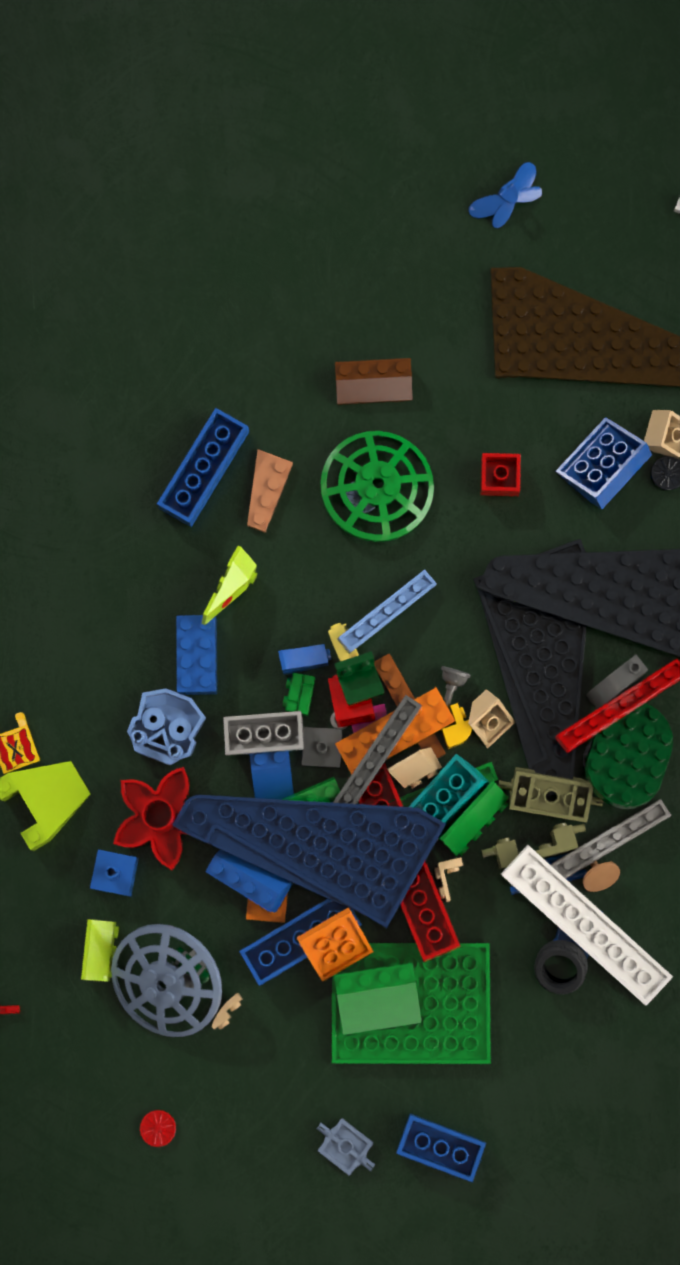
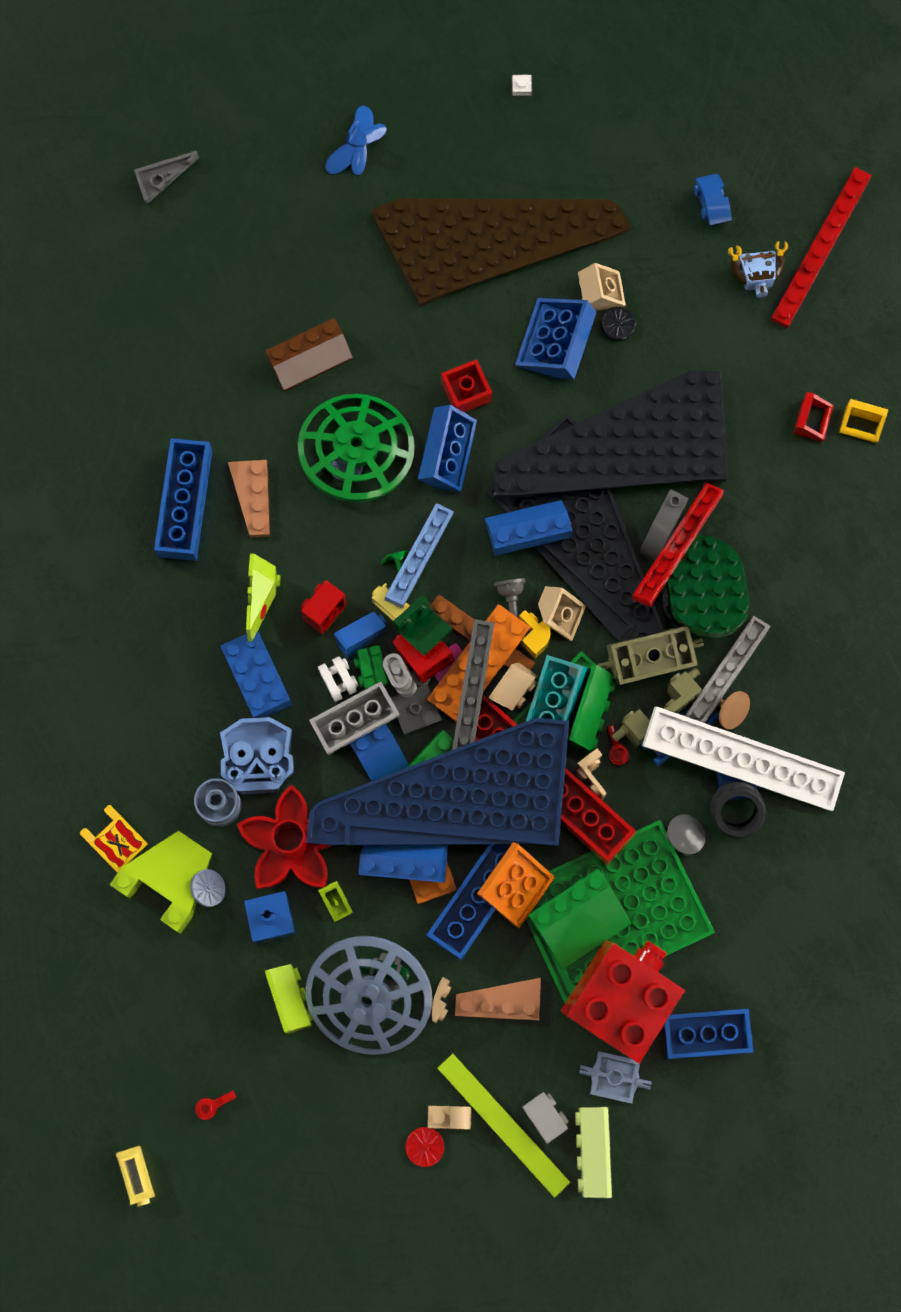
camera: 30 degrees left, 5 degrees down
(73, 823) = (207, 888): none -> sand blue wheel
(113, 753) = (217, 802): none -> sand blue wheel
(176, 885) = (335, 901): none -> lime slope
(190, 1114) = (449, 1117): none -> tan plate
(232, 1142) = (503, 1125): none -> lime tile
(270, 1152) = (545, 1117): none -> light grey brick
(274, 697) = (340, 667): none -> white brick
(281, 620) = (323, 606): none -> red brick
(283, 1038) = (506, 1001): none -> nougat wing
(297, 1202) = (594, 1152): none -> yellowish green slope
(313, 152) = (158, 176): none -> dark grey wing
(320, 712) = (399, 675): none -> light grey brick
(367, 604) = (397, 557): none -> green plant
(382, 1085) = (624, 998): none -> red brick
(458, 523) = (447, 448): none -> blue slope
(481, 867) = (618, 753): none -> red plate
(495, 629) = (528, 527): none -> blue slope
(506, 966) = (686, 834): none -> dark grey dish

